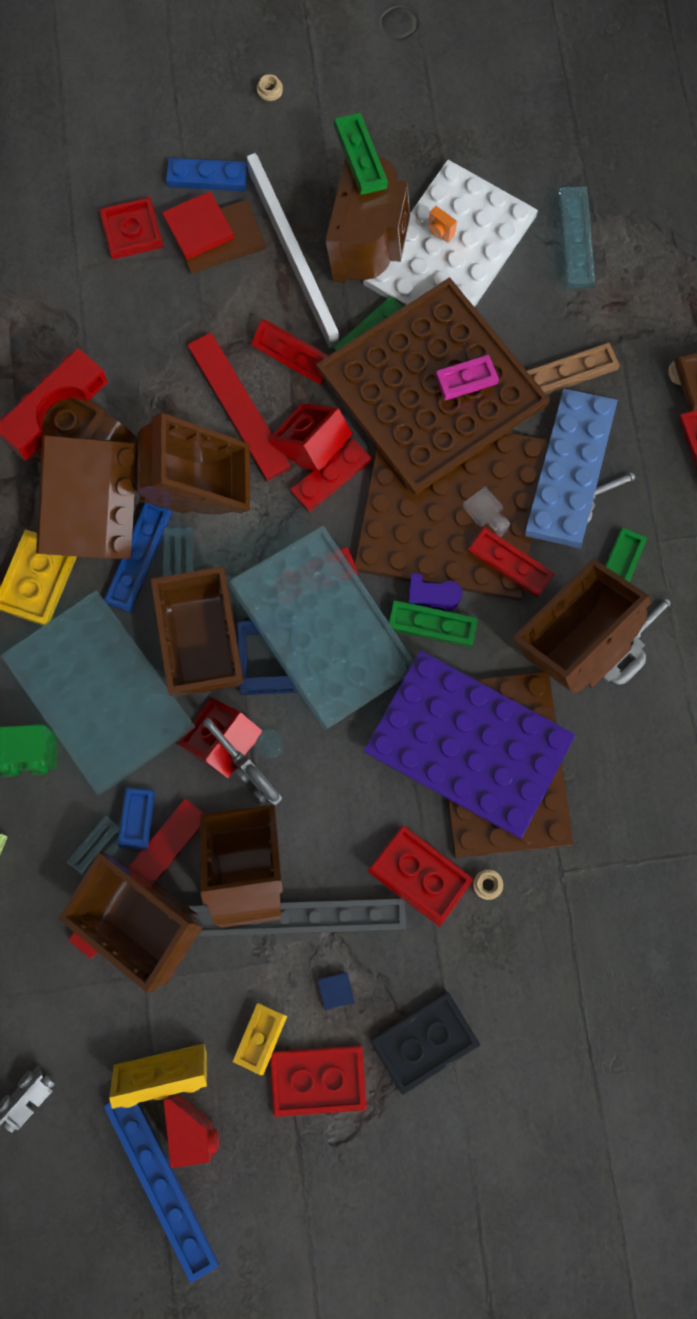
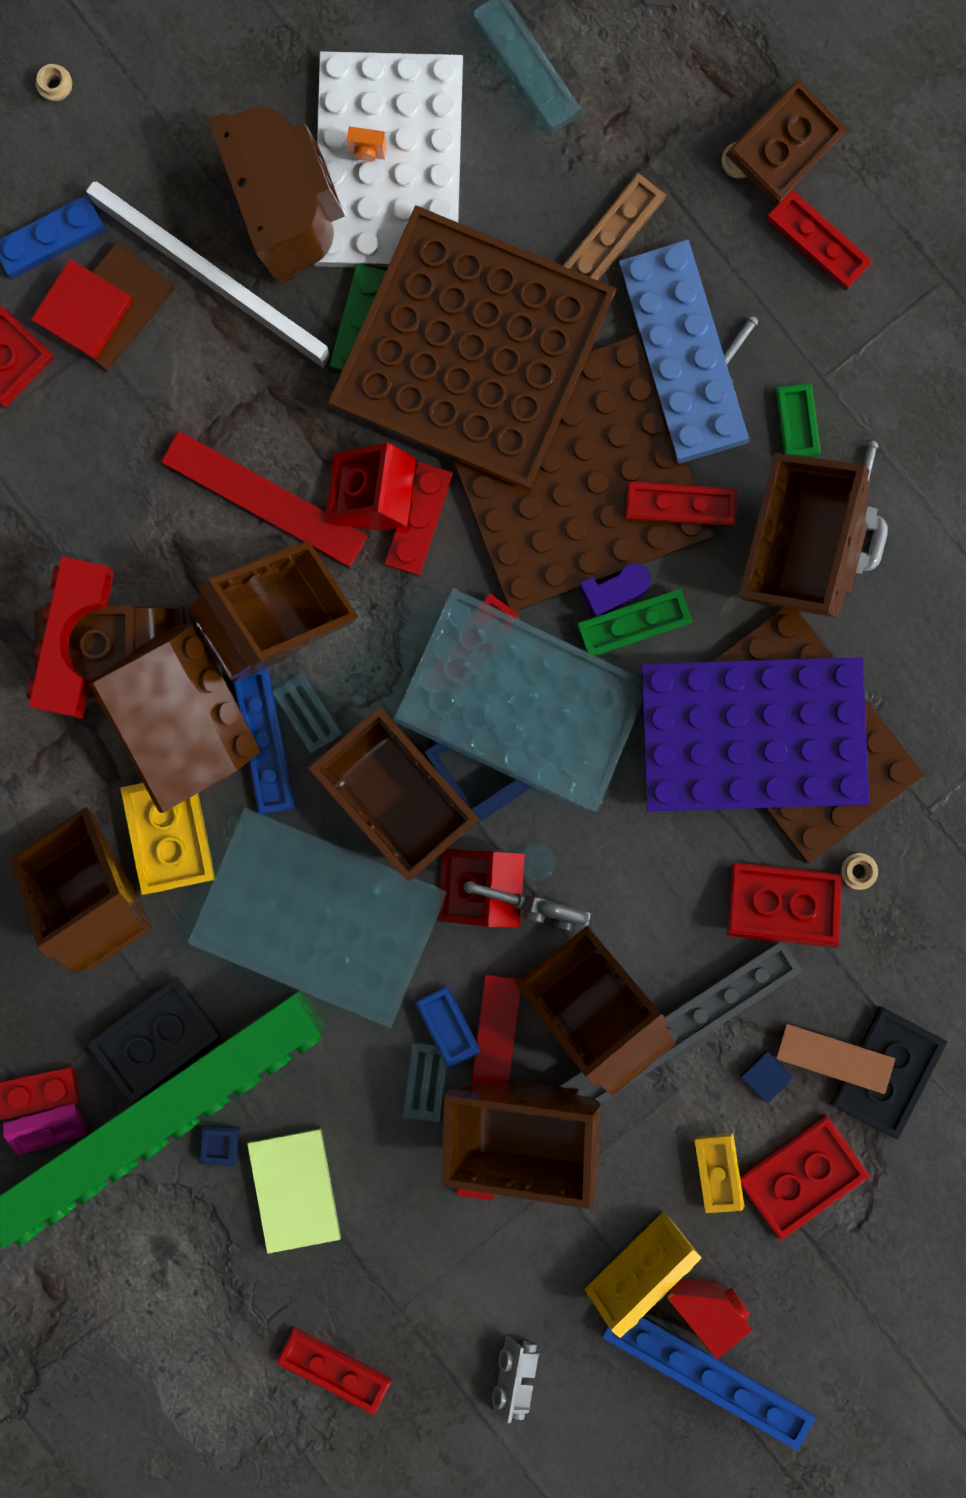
camera: 25 degrees left, 10 degrees up
(289, 350) = (283, 399): red plate -> none
(360, 153) = (230, 121): green plate -> none
(392, 1007) = (836, 1059): none -> nougat tile
(466, 377) = (510, 319): dark pink plate -> none
(485, 509) = (617, 459): clear plate -> none

